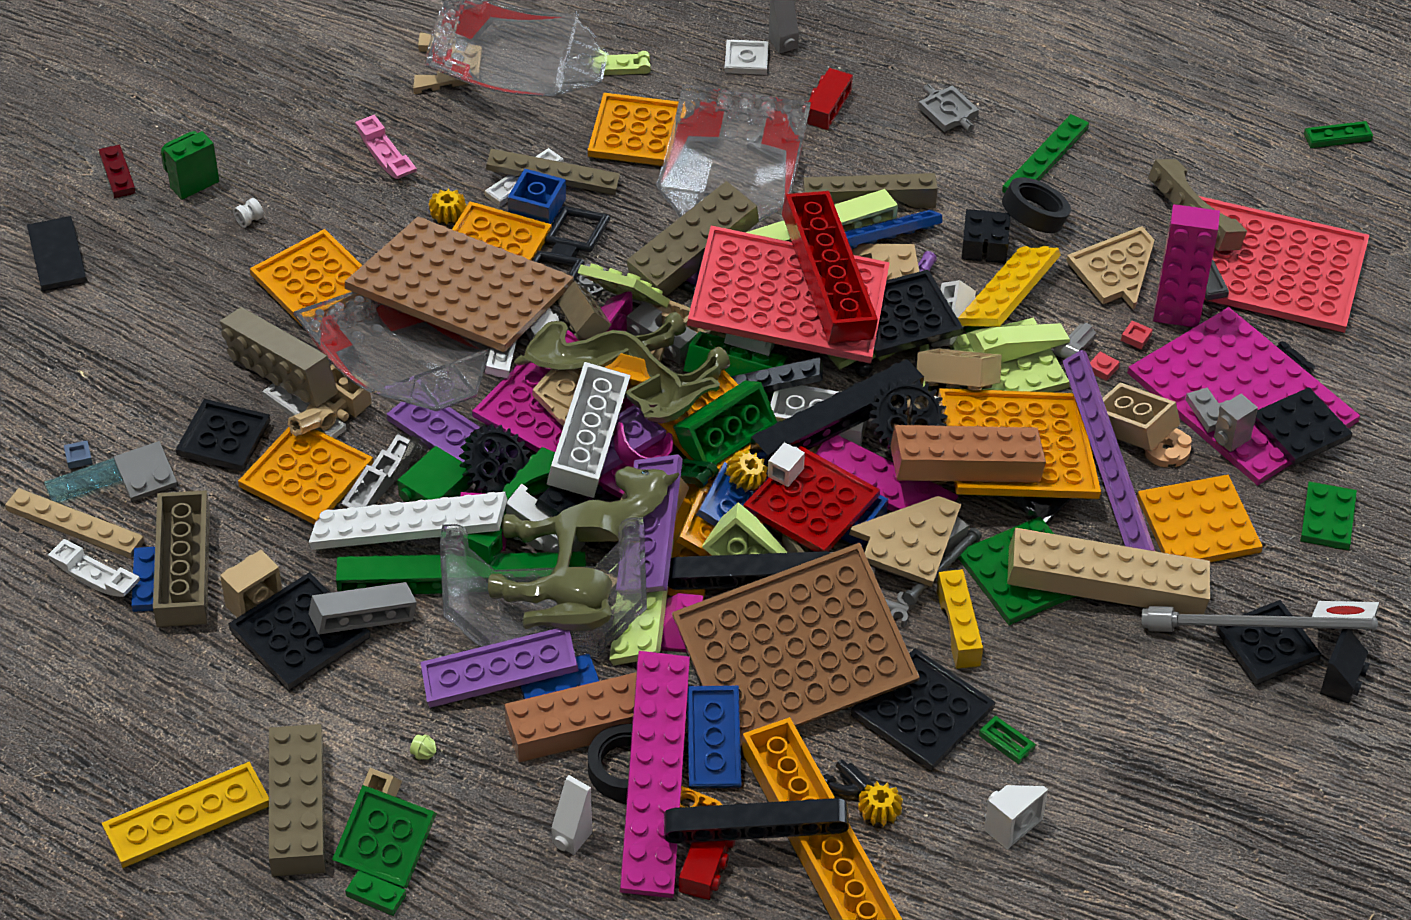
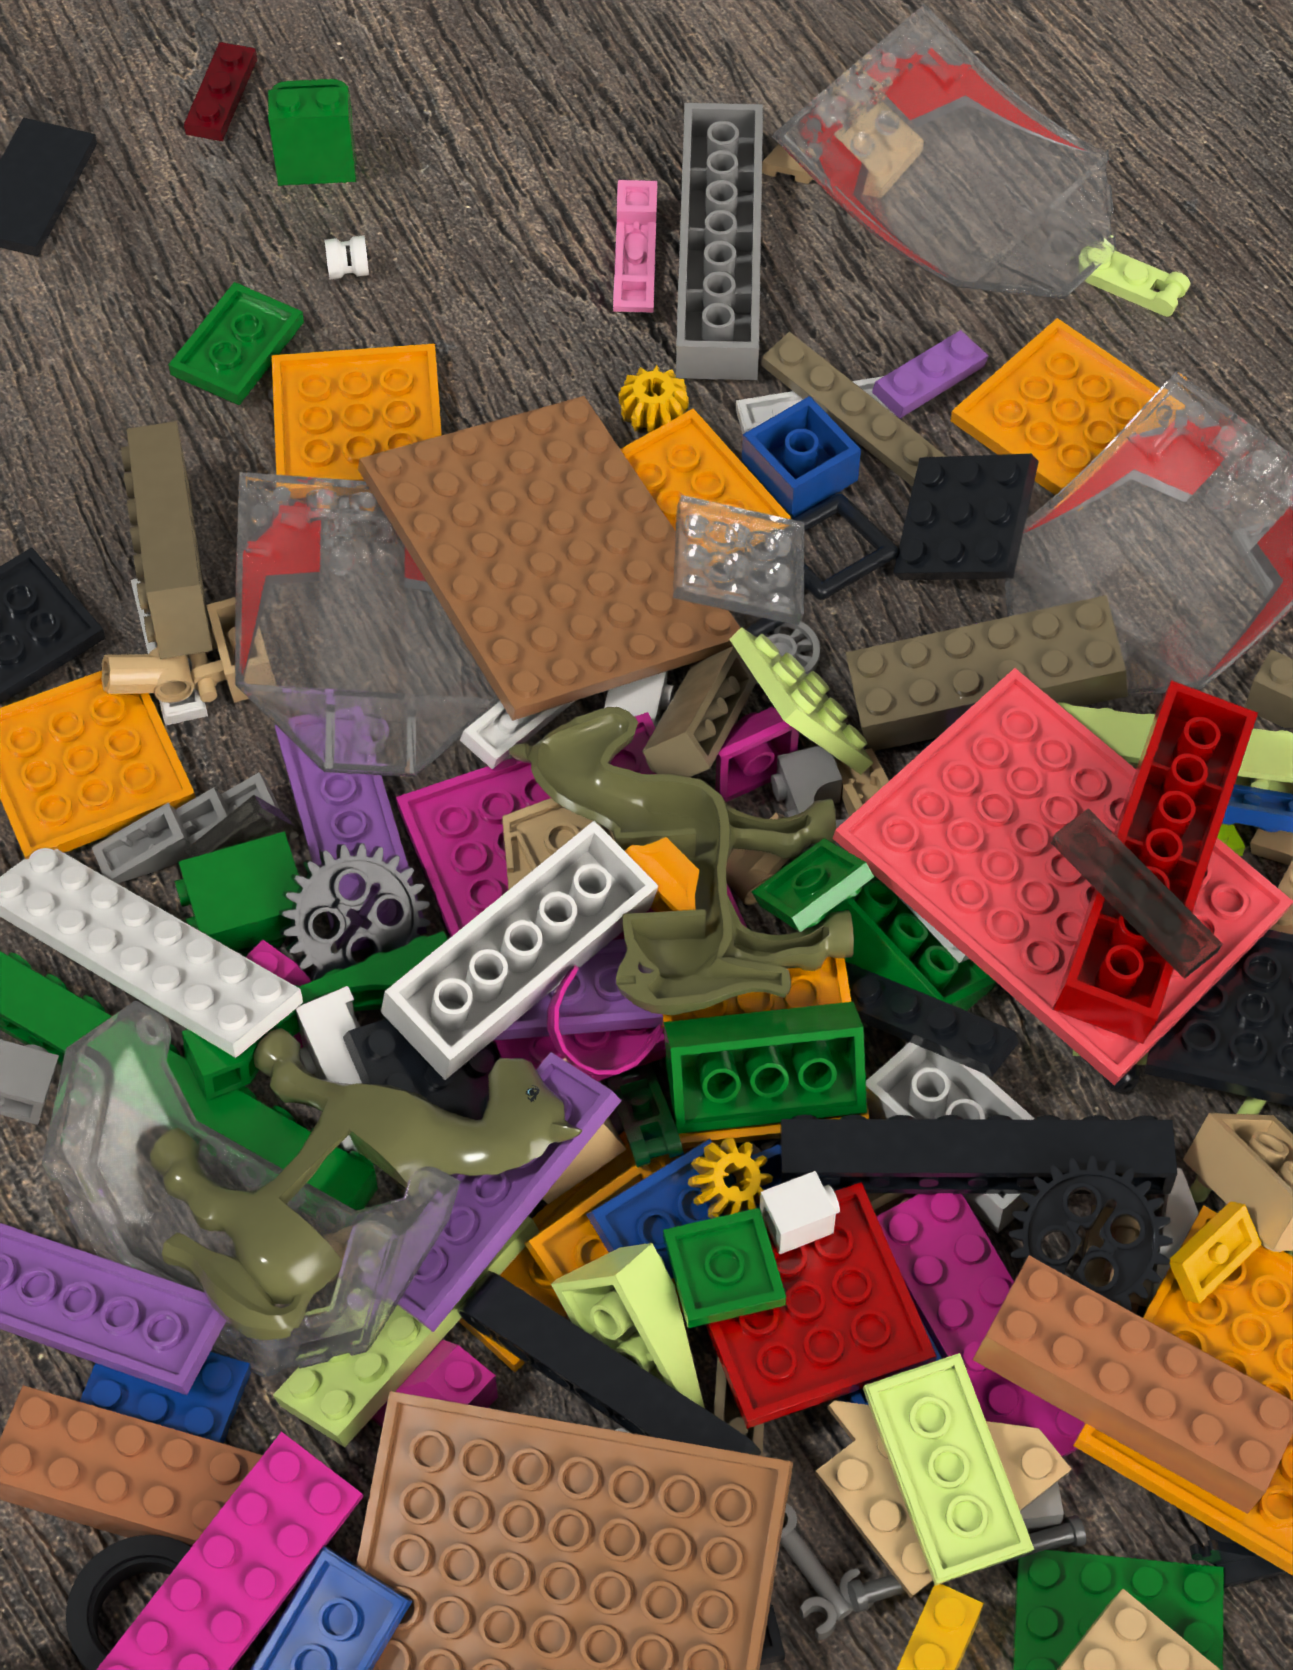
camera: 35 degrees right, 10 degrees up
(225, 272) = (236, 343): none -> green plate
(424, 126) = (720, 242): none -> light grey brick
(548, 246) = (739, 560): none -> clear plate
(564, 140) = (929, 374): none -> medium lavender plate
(633, 185) = (966, 517): none -> black plate
(693, 345) = (813, 885): none -> green plate
(772, 499) = (724, 1267): none -> green plate
(836, 275) = (1136, 893): none -> clear smoke plate
(915, 525) = (948, 1469): none -> yellowish green tile
(959, 398) = (1214, 1252): none -> yellow plate

